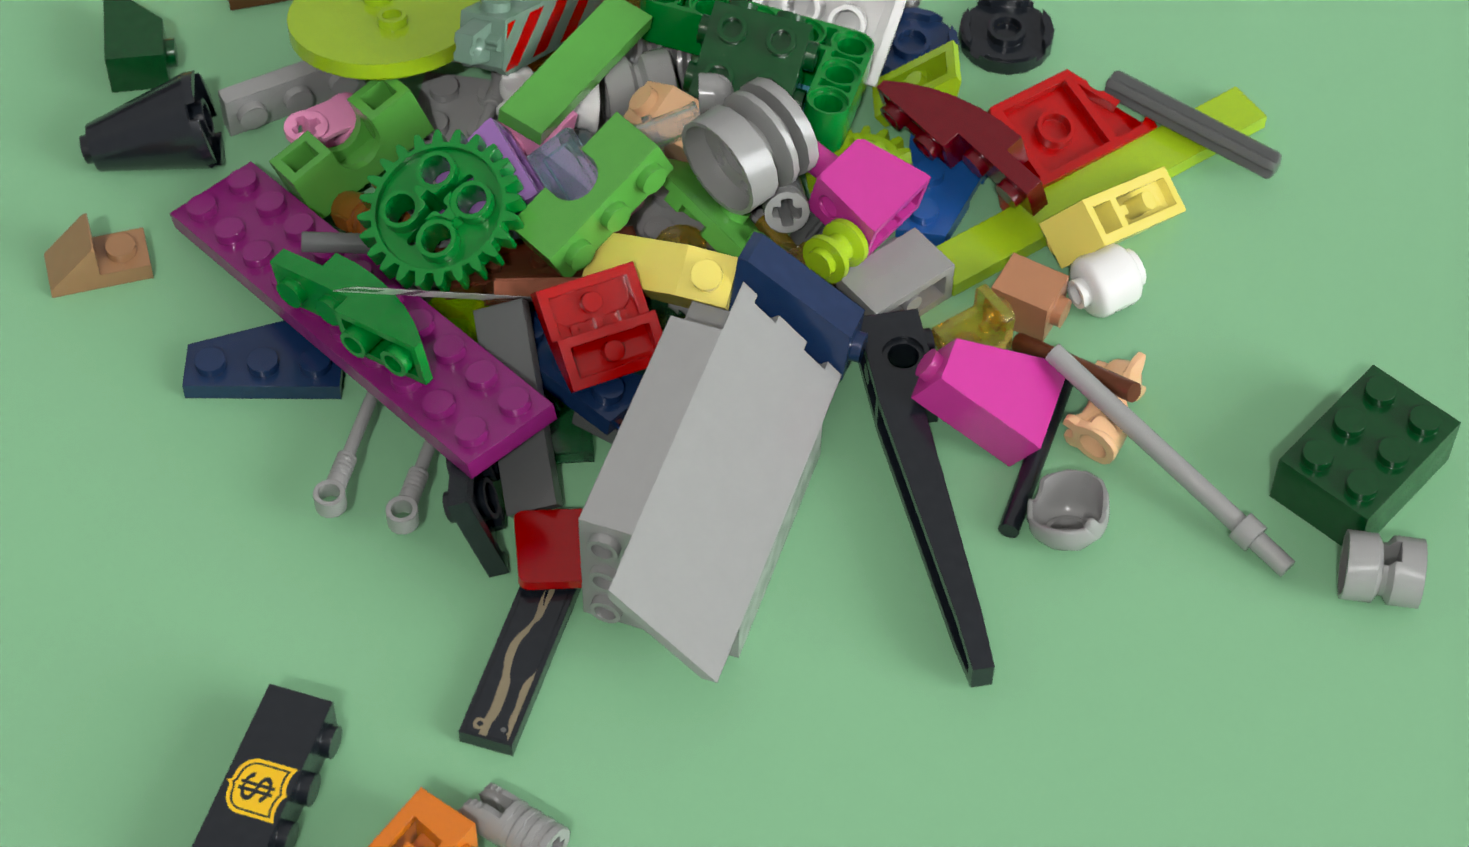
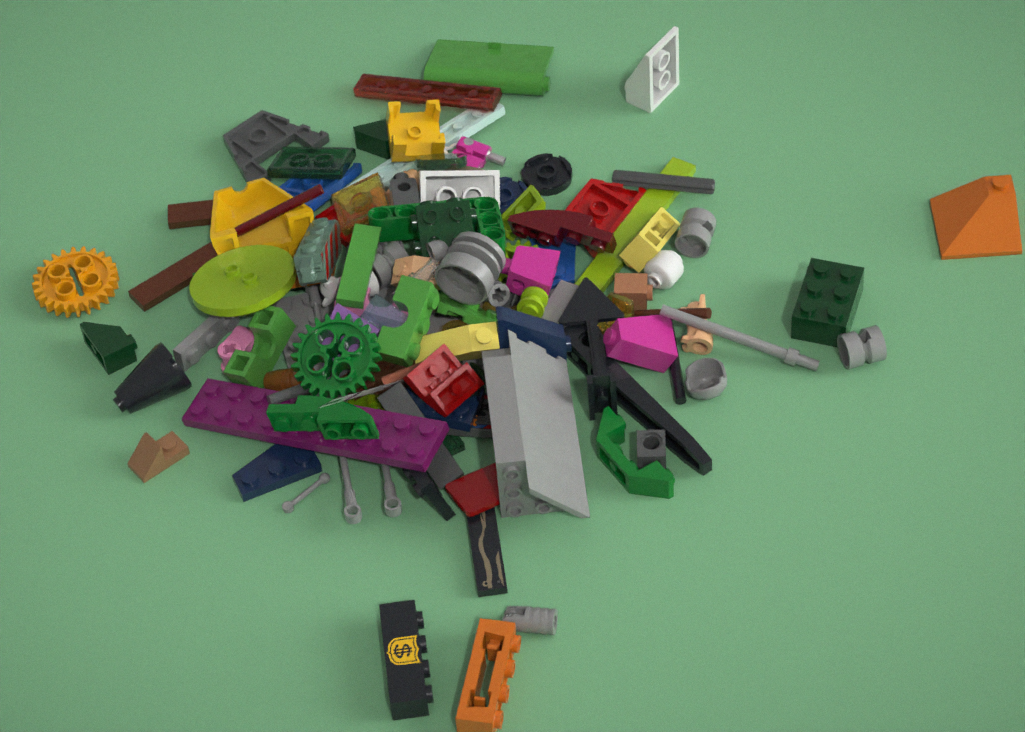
camera: 20 degrees left, 5 degrees down
(248, 437) = (288, 506): none -> light grey hinge
(865, 655) = (649, 481): none -> green slope
(895, 622) = (651, 447): none -> dark grey brick
(928, 298) = (591, 307): none -> black piece
(1198, 236) = (695, 232): none -> light grey wheel

